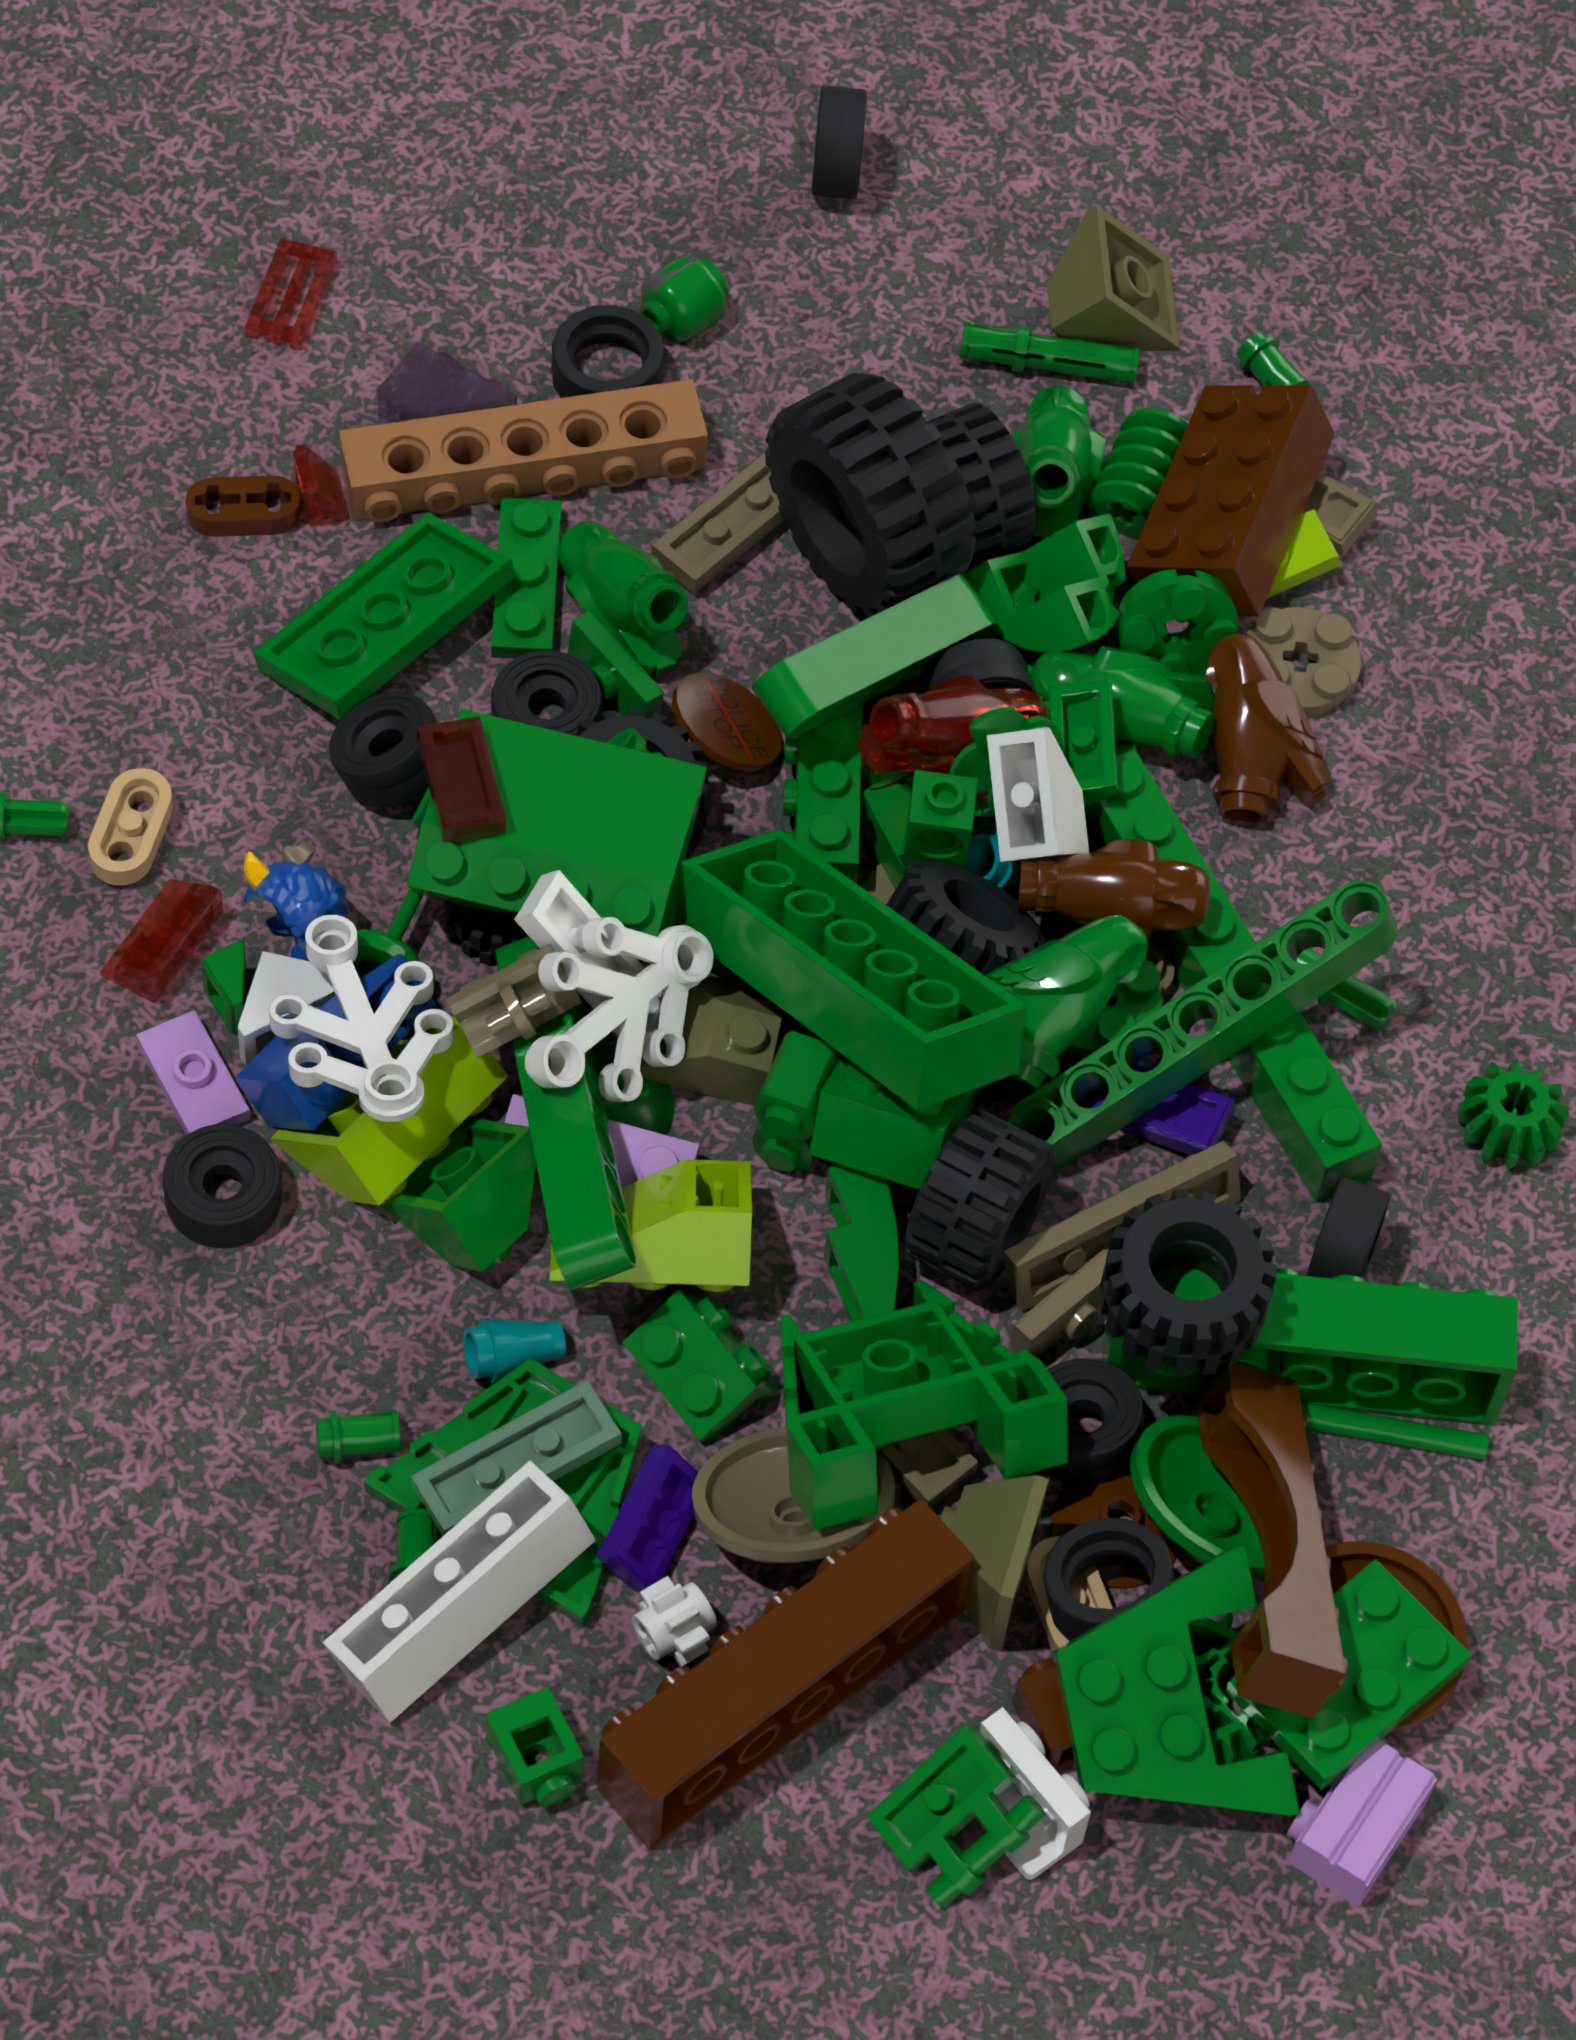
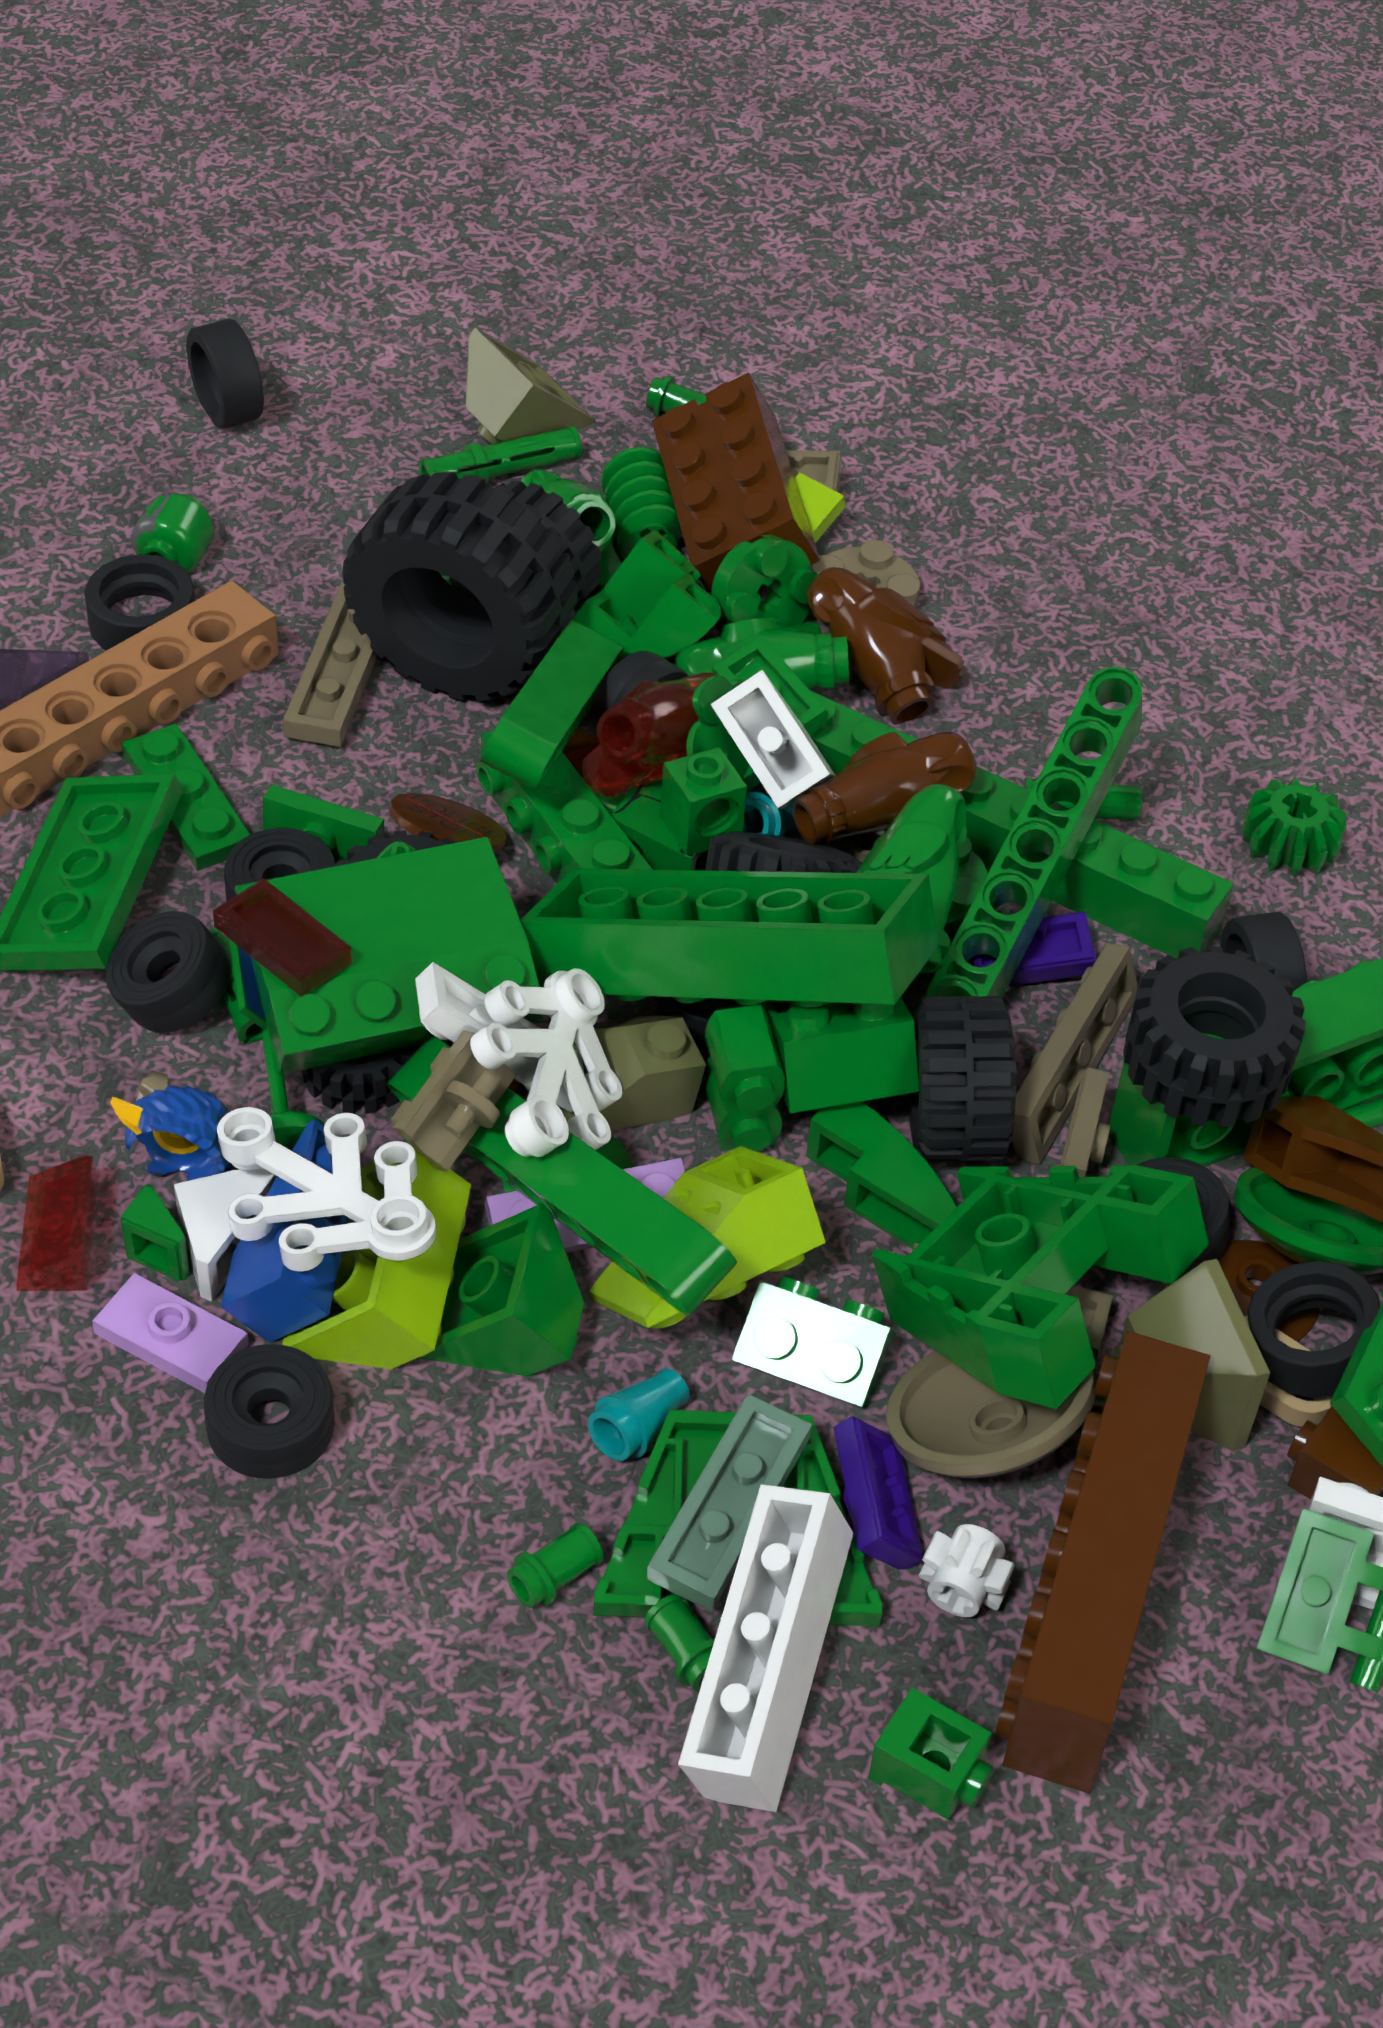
camera: 30 degrees left, 10 degrees down
(625, 593) = (290, 754): green animal -> none

